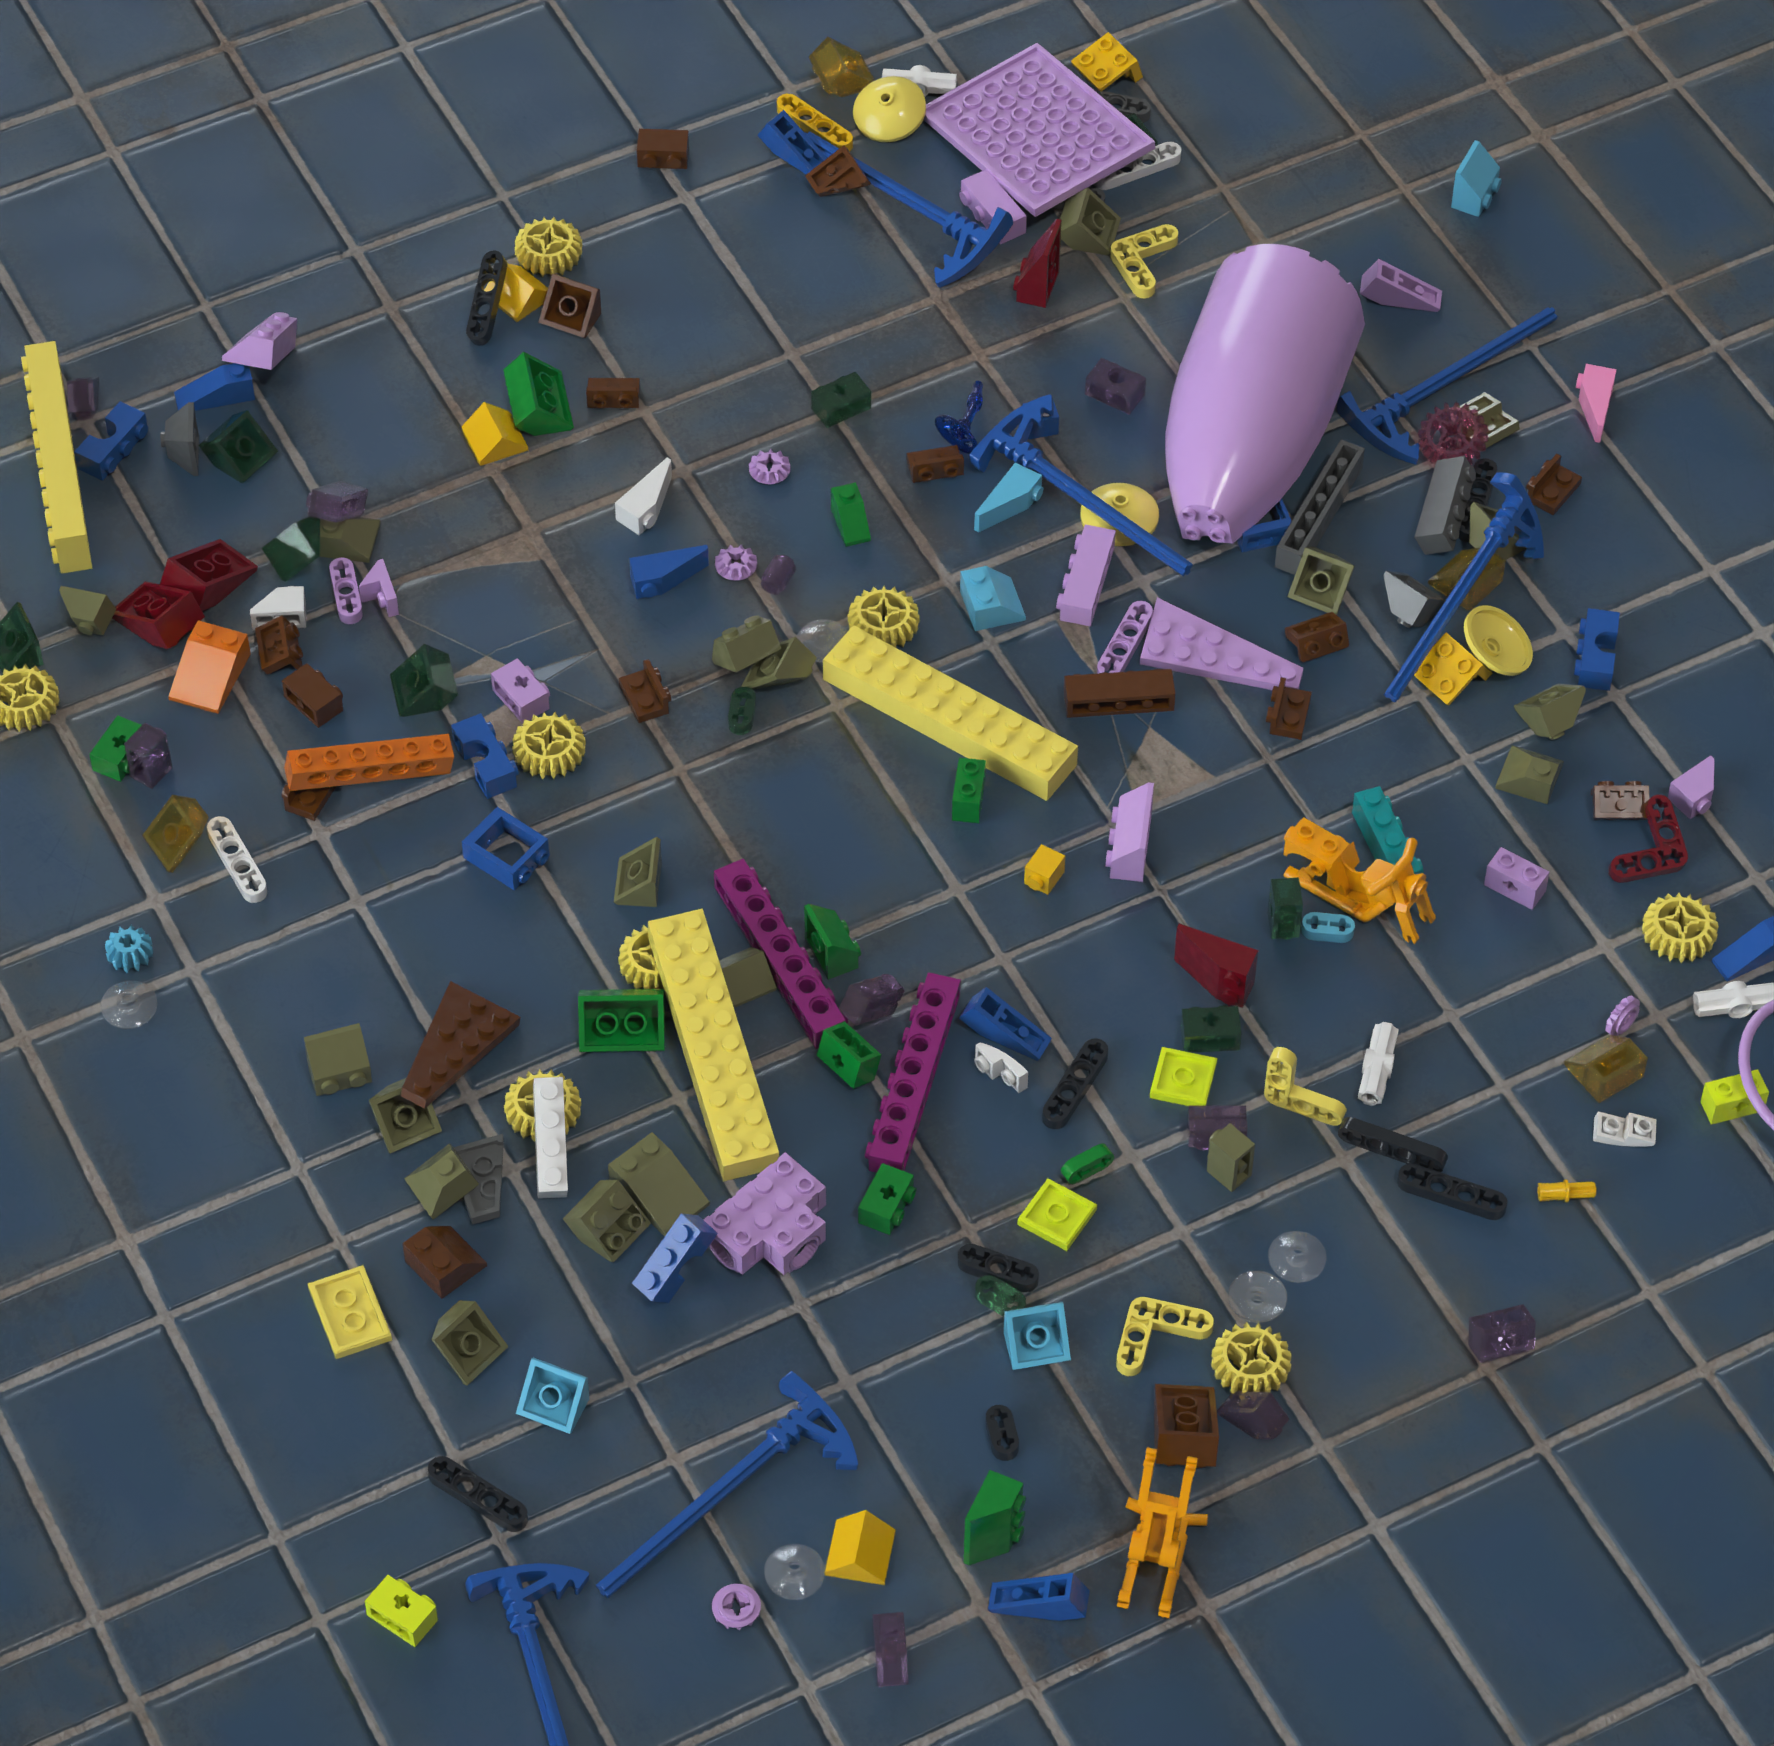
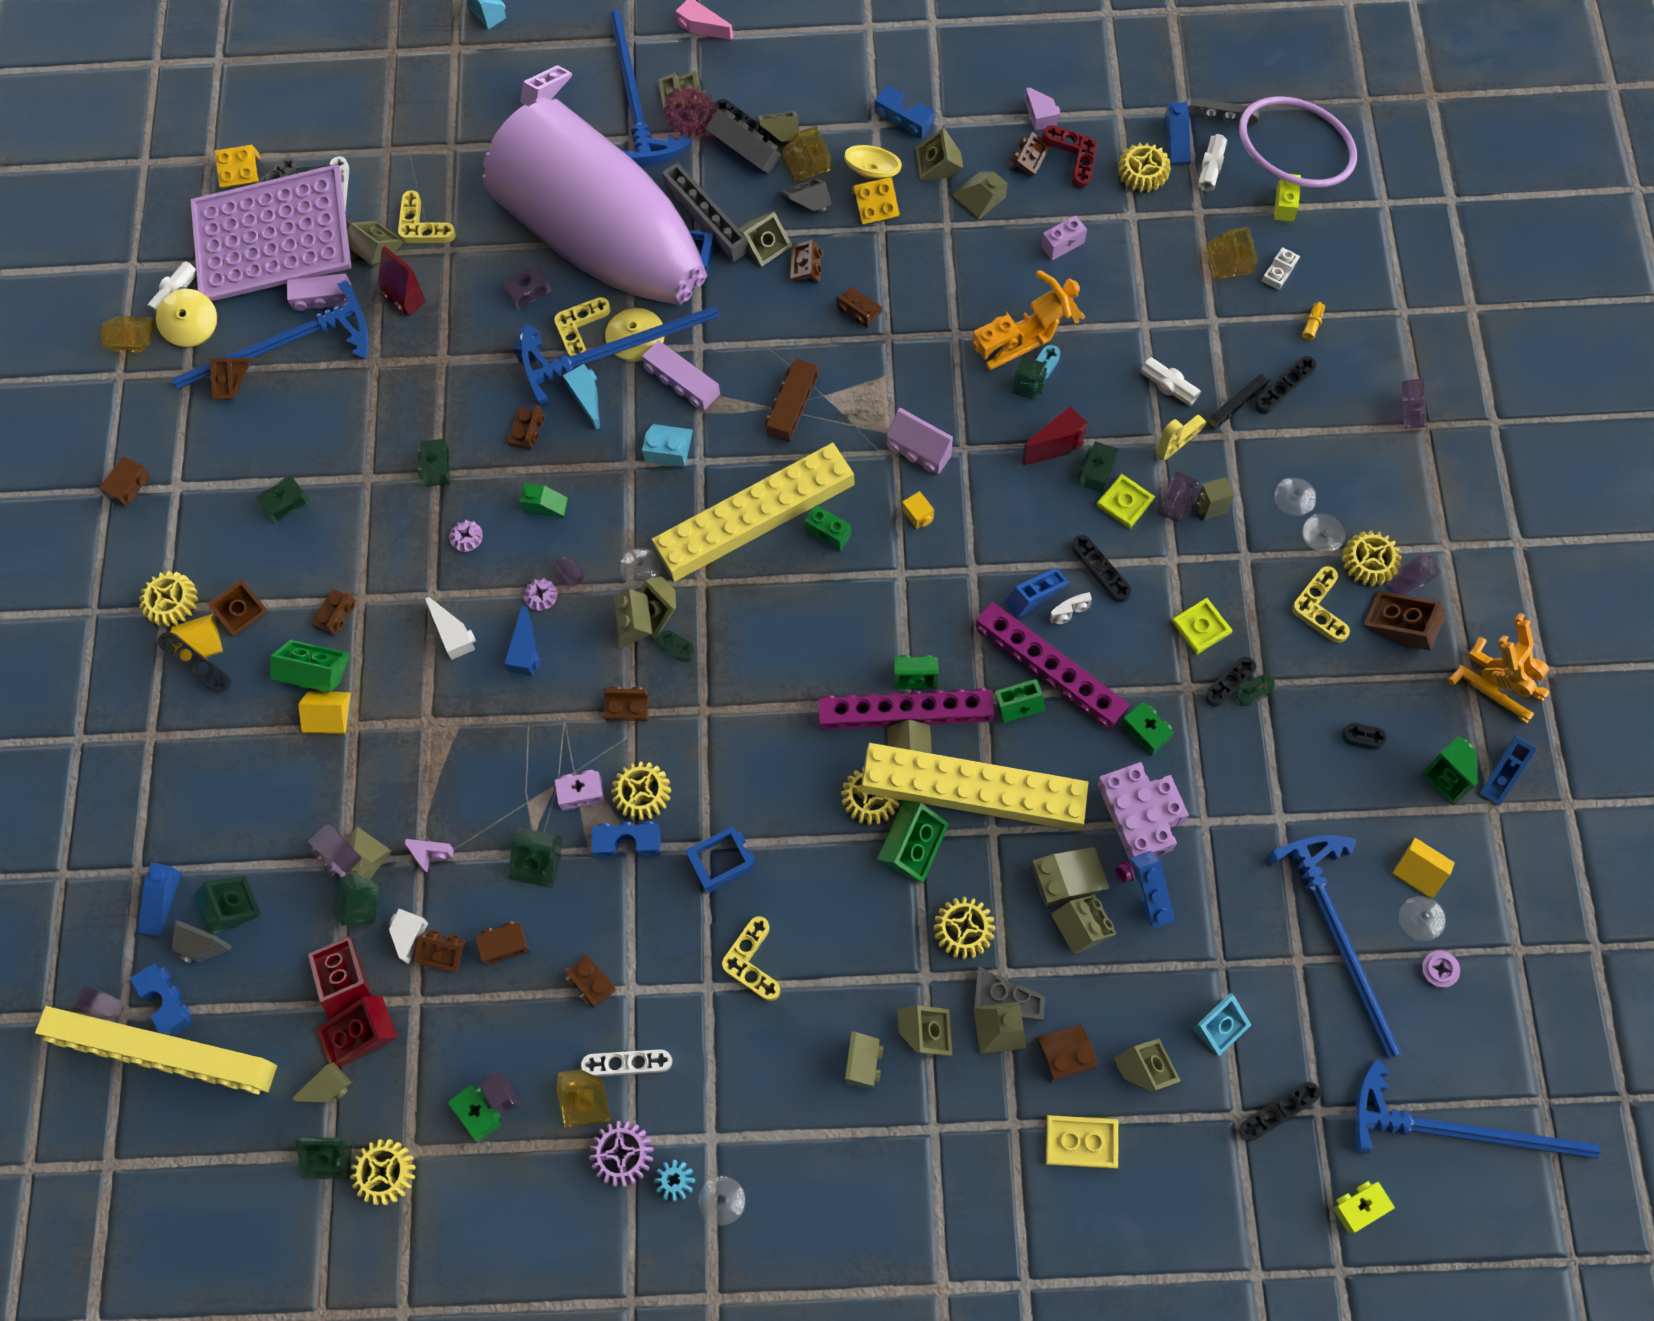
camera: 60 degrees left, 15 degrees up
(136, 891) = (619, 1133): none -> lavender gear
(209, 666) = (433, 1012): orange slope -> none
(265, 343) = (138, 844): lavender slope -> none
(342, 599) = (398, 869): lavender beam -> none
(368, 762) = (597, 927): orange brick -> none
(404, 917) = (744, 957): none -> light yellow beam
(458, 1038) = (884, 964): reddish brown wing -> none
(550, 1137) = (1008, 933): white brick -> none
(639, 875) = (791, 776): olive slope -> none
(719, 288) = (282, 499): none -> clear green brick
(791, 143) = (178, 394): blue slope -> none
(799, 108) = (163, 368): yellow beam -> none
(871, 999) = (982, 665): clear purple brick -> none
(890, 1649) = (1513, 880): clear purple slope -> none
(899, 613) = (645, 511): light yellow gear -> none
(961, 427) = (513, 397): clear blue dish -> none
(1036, 1335) = (1301, 681): medium azure slope -> none
(1087, 1163) = (1173, 589): green beam -> none
(1093, 450) = (571, 326): none -> light yellow beam
(1125, 642) = (749, 377): lavender beam -> none
(1199, 648) = (776, 337): lavender wing -> none
(1380, 827) = (996, 296): teal brick -> none
(1504, 526) = (800, 113): blue piece -> none
(1552, 485) = (757, 77): reddish brown bracket -> none
(1623, 1016) = (1201, 228): lavender gear -> none

